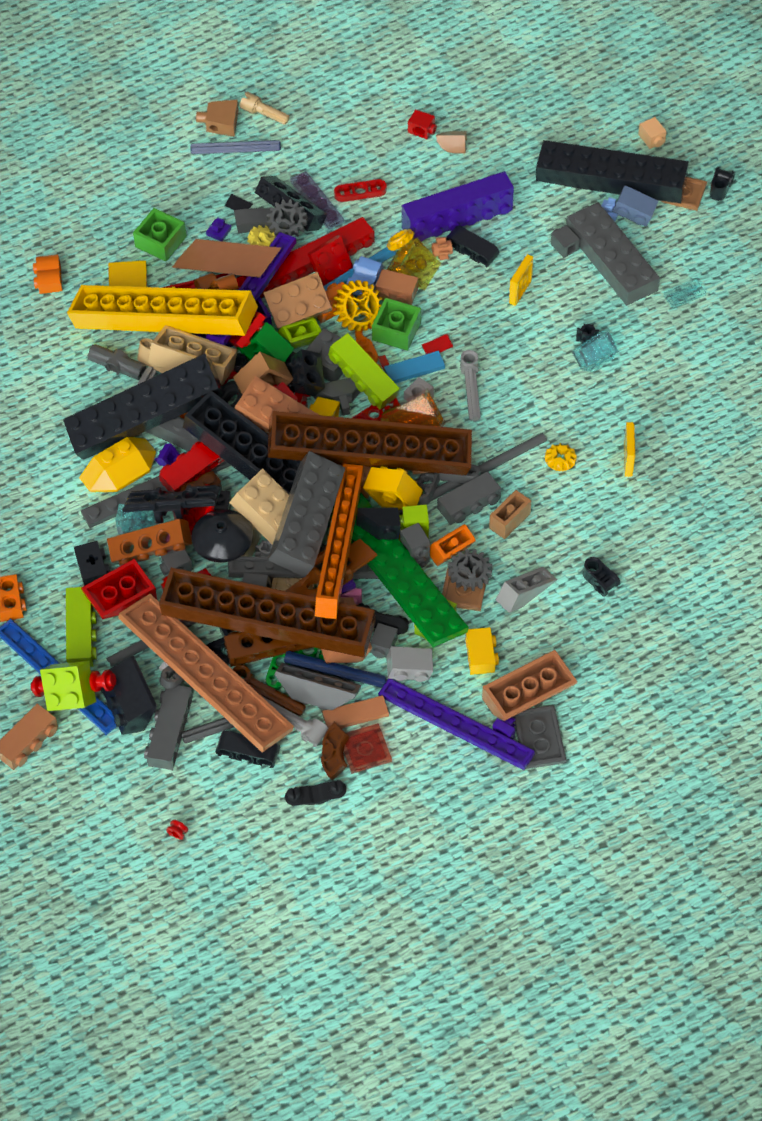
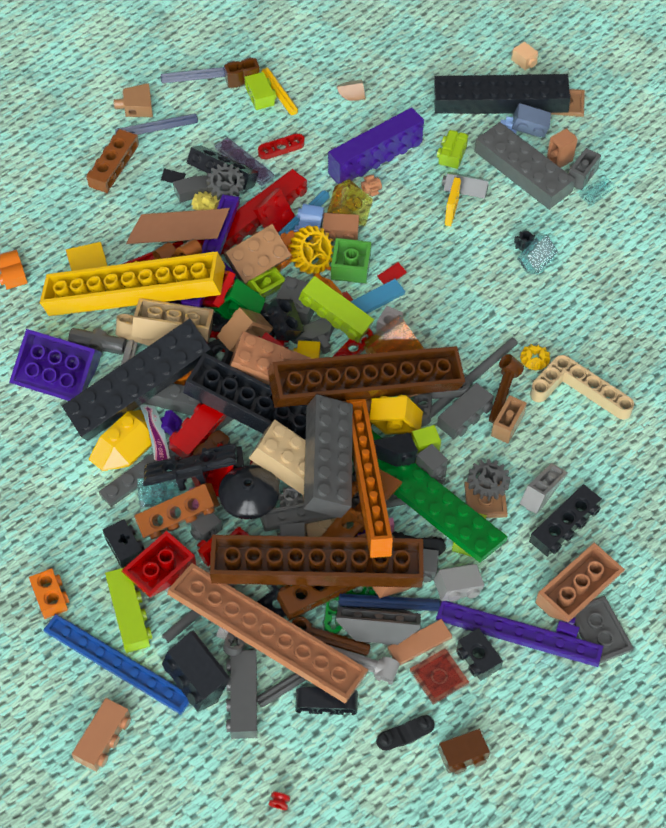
camera: 15 degrees left, 0 degrees up
(67, 378) = (54, 365): none -> dark purple slope
(71, 685) = (136, 673): lime brick -> none
(150, 474) = (156, 433): none -> sticker
(159, 234) = (108, 215): bright green brick -> none
(179, 177) = (112, 160): none -> dark orange brick
(218, 229) = (161, 202): dark purple tile -> none
(254, 104) = (163, 85): tan piece -> none
(299, 98) = (192, 75): none -> axle
(332, 751) = (409, 685): reddish brown tile -> none
(339, 103) = (237, 71): none -> reddish brown brick
(353, 126) = (260, 91): none -> lime brick
(366, 821) = (464, 751): none -> reddish brown brick
(375, 130) = (280, 92): none -> yellow axle
(399, 239) = (333, 183): yellow gear -> none
(409, 724) = (477, 643): none -> black brick
(422, 124) = (320, 79): red brick -> none
(450, 544) = (464, 458): orange brick -> none
(470, 371) = (429, 291): light grey axle -> none
(473, 245) = (398, 178): black beam -> none
(480, 651) = (521, 556): yellow brick -> none
(528, 465) = (510, 369): none -> reddish brown axle
(541, 224) = (453, 149): none -> lime brick
(541, 616) = (584, 499): none -> black brick
(545, 264) = (469, 185): none -> brick
(564, 241) = (478, 161): dark grey brick -> none
(588, 480) = (586, 379): none -> tan beam
(602, 579) = (608, 463): black piece -> none
(629, 449) = (598, 338): yellow tile -> none
(657, 242) = (562, 148): none -> nougat brick
(675, 267) = (585, 168): none -> dark grey brick
(720, 183) = (597, 90): black piece -> none

